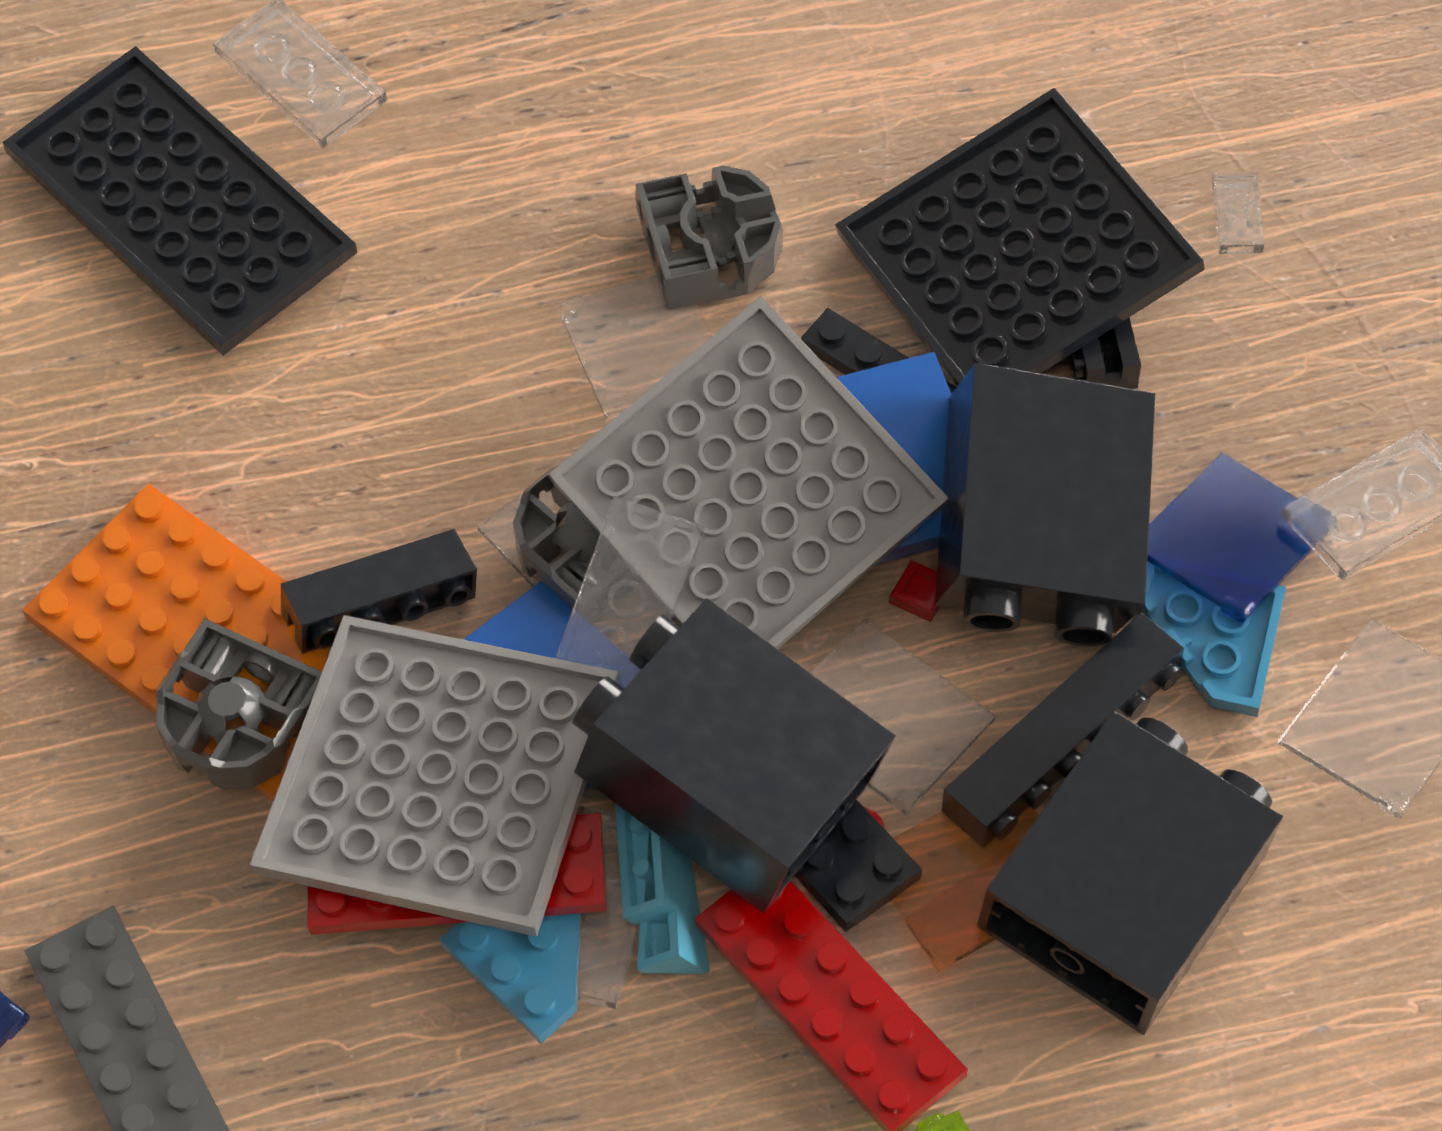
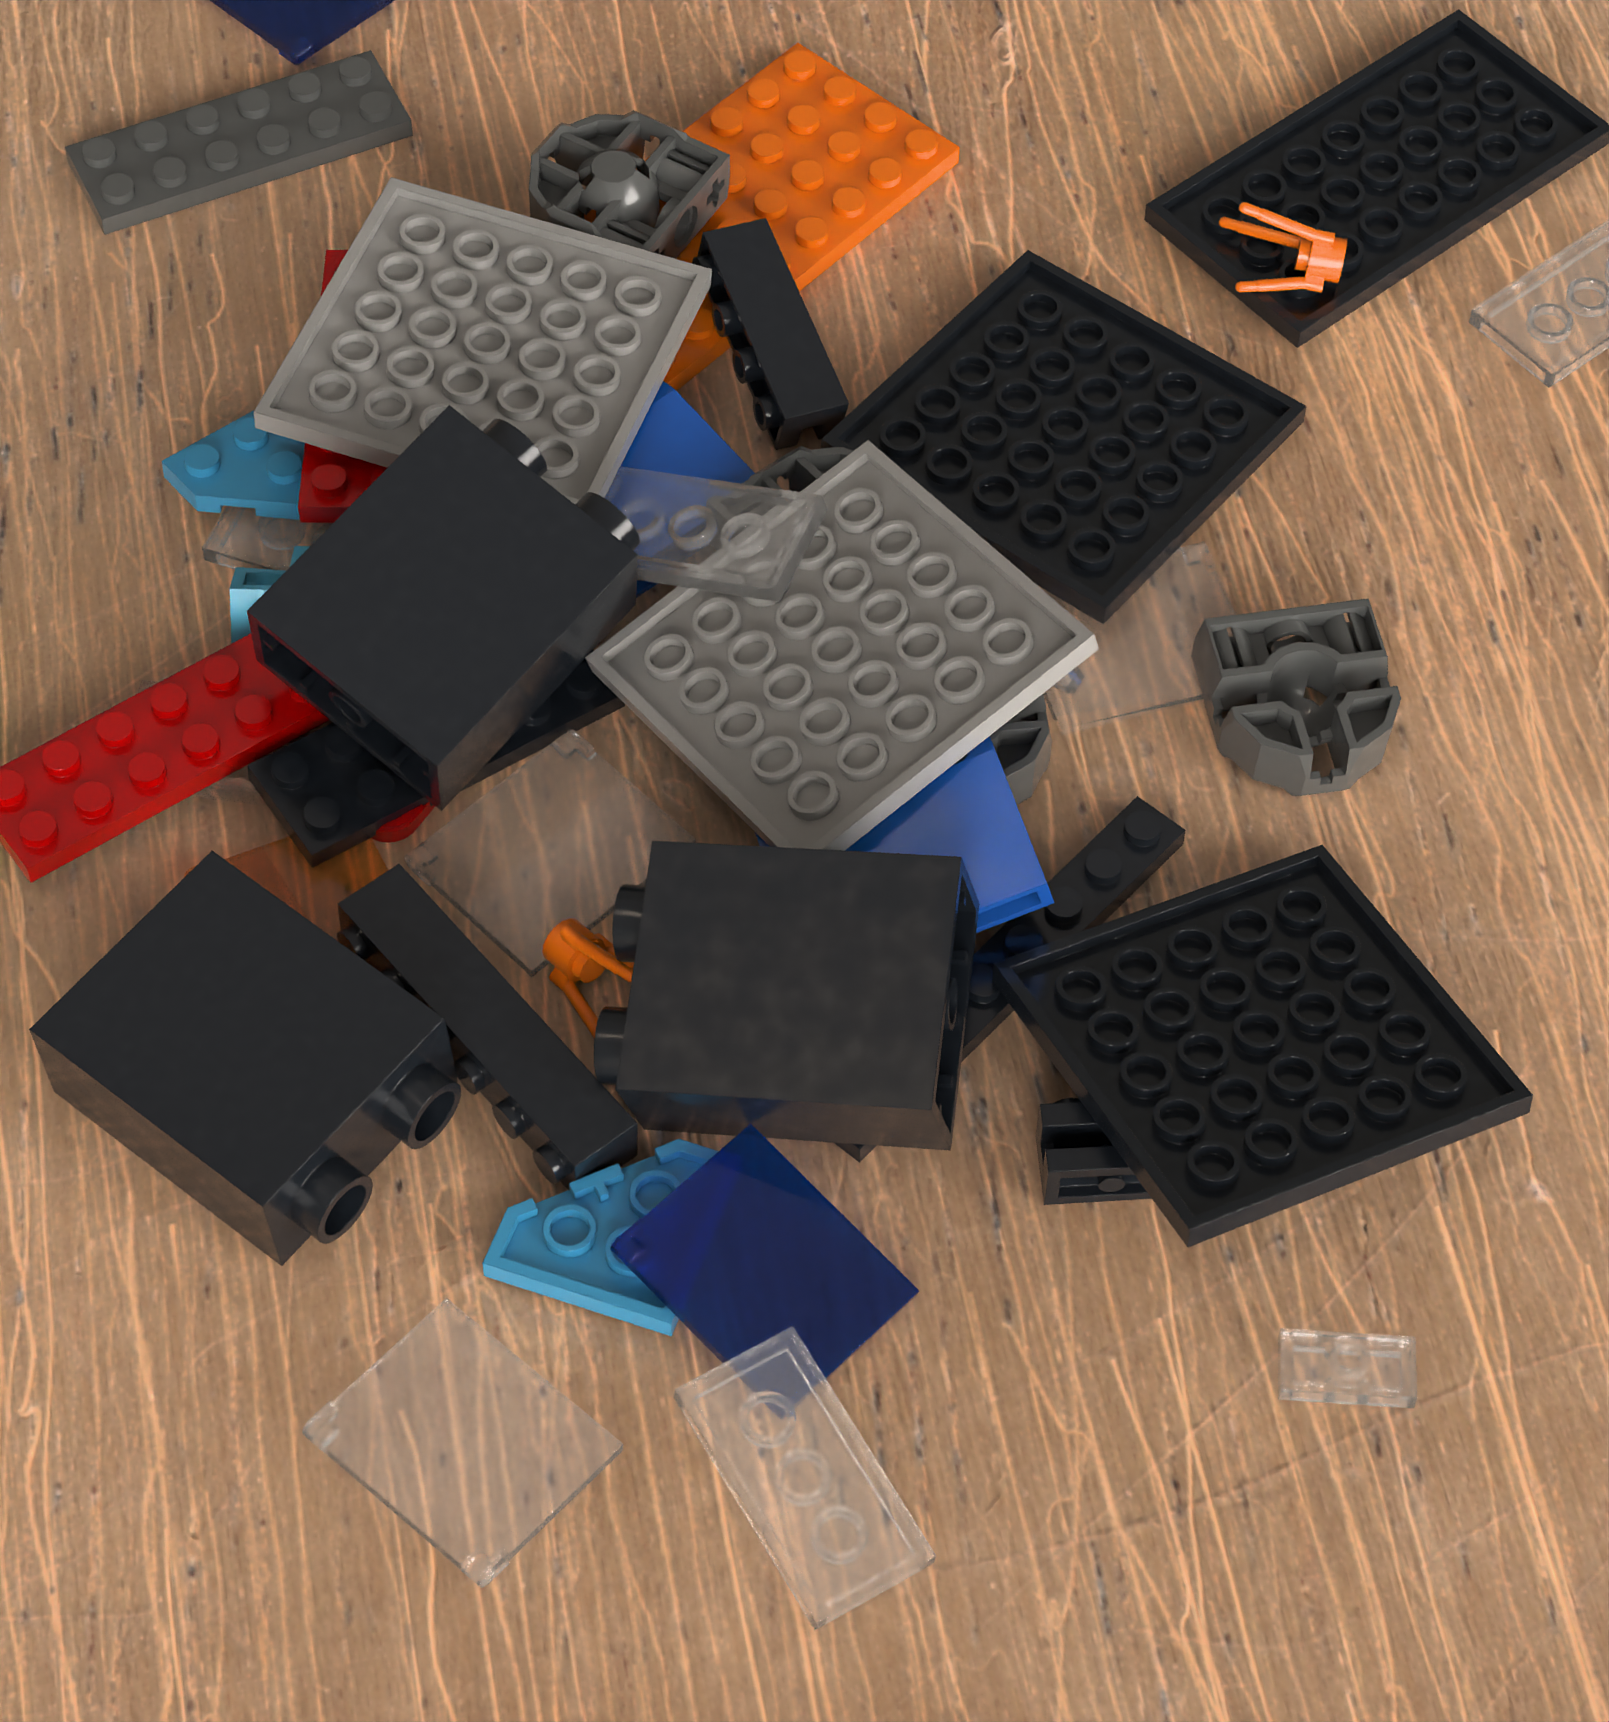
camera: 90 degrees right, 5 degrees down
(286, 226) = (1317, 254): none -> orange plant
(459, 394) = (1072, 431): none -> black plate
(985, 678) = (582, 957): none -> orange plant

